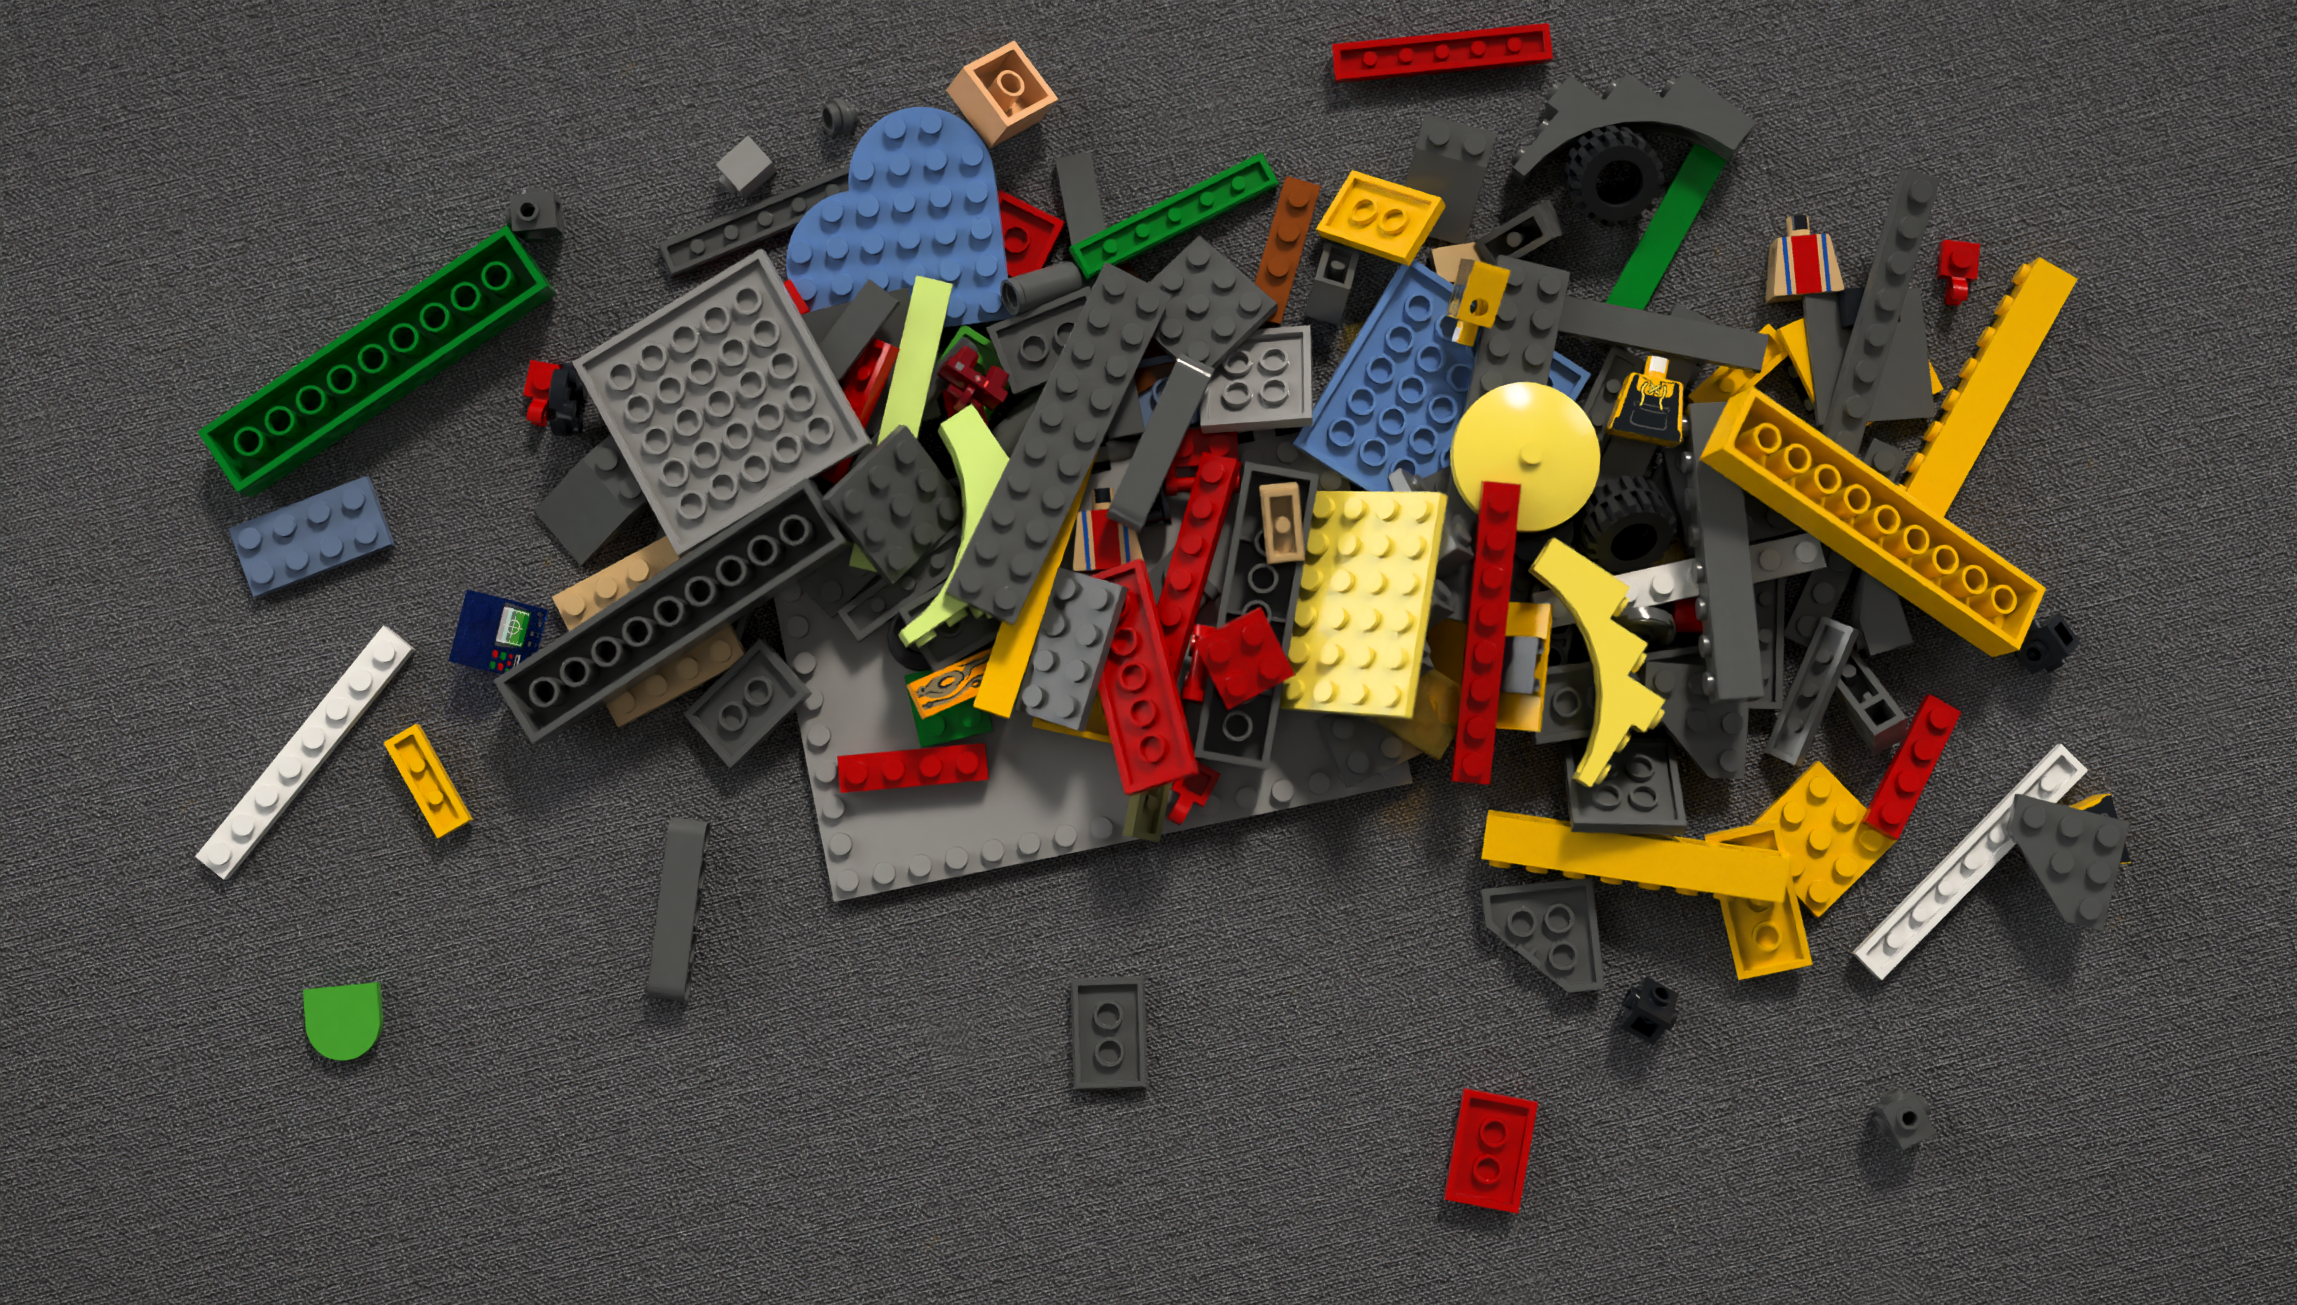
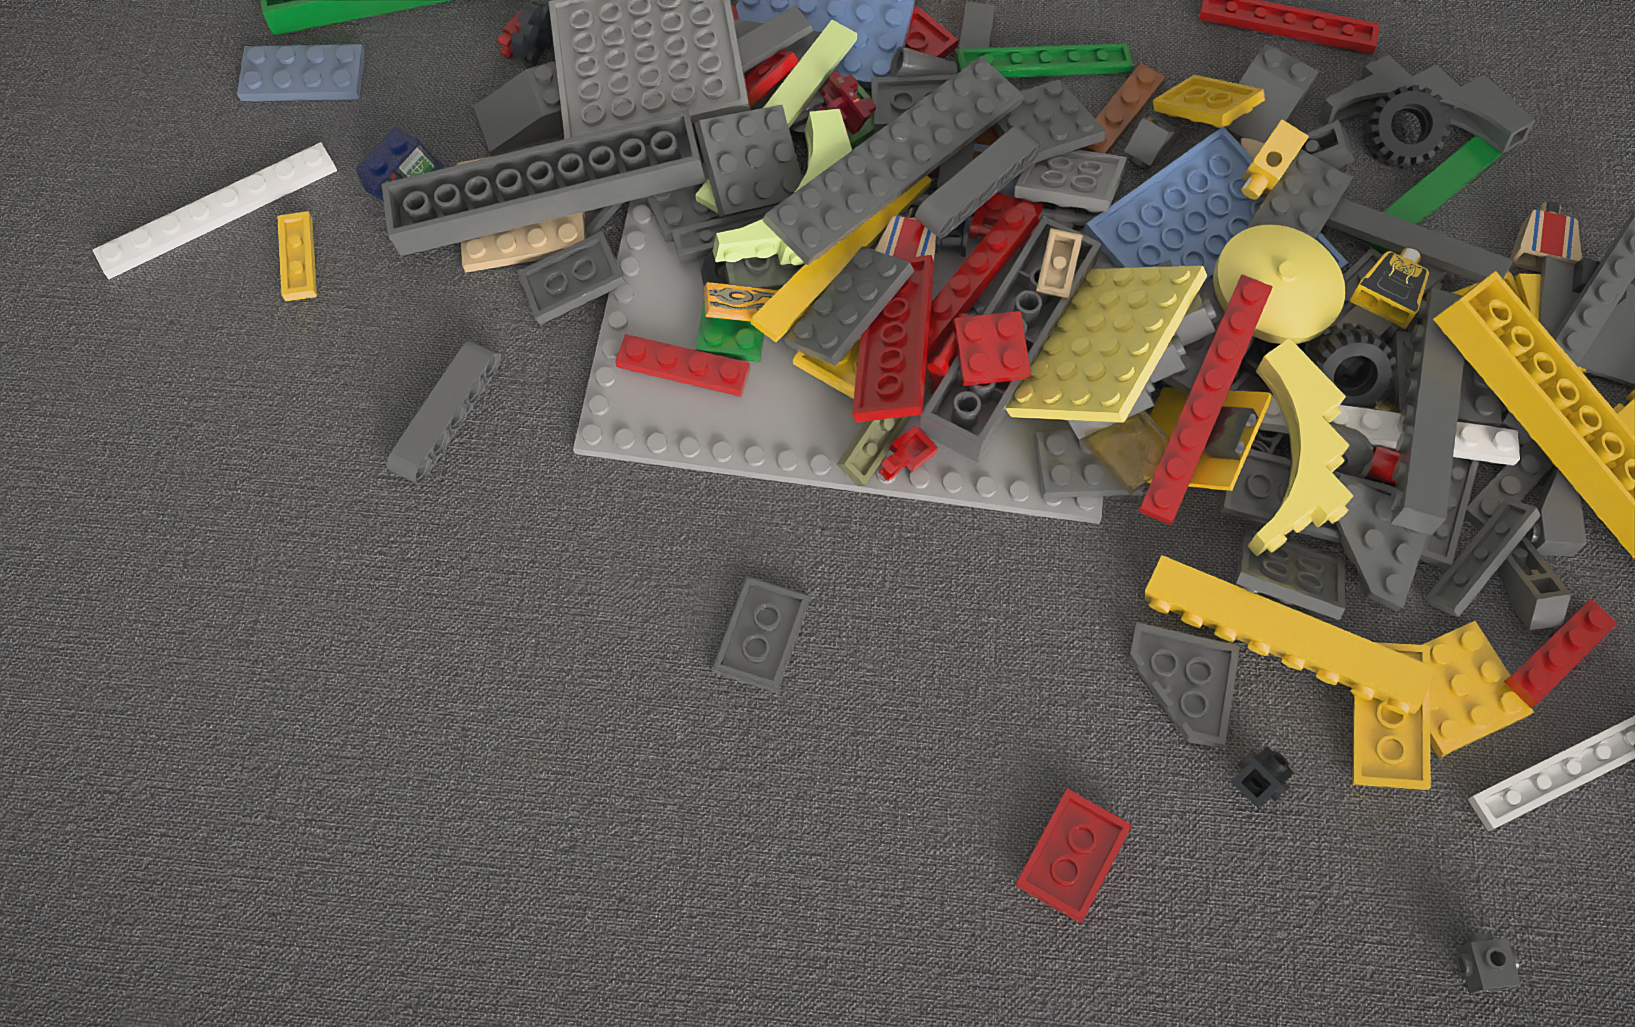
camera: 20 degrees right, 20 degrees down
(343, 1019) = (137, 405): bright green tile -> none

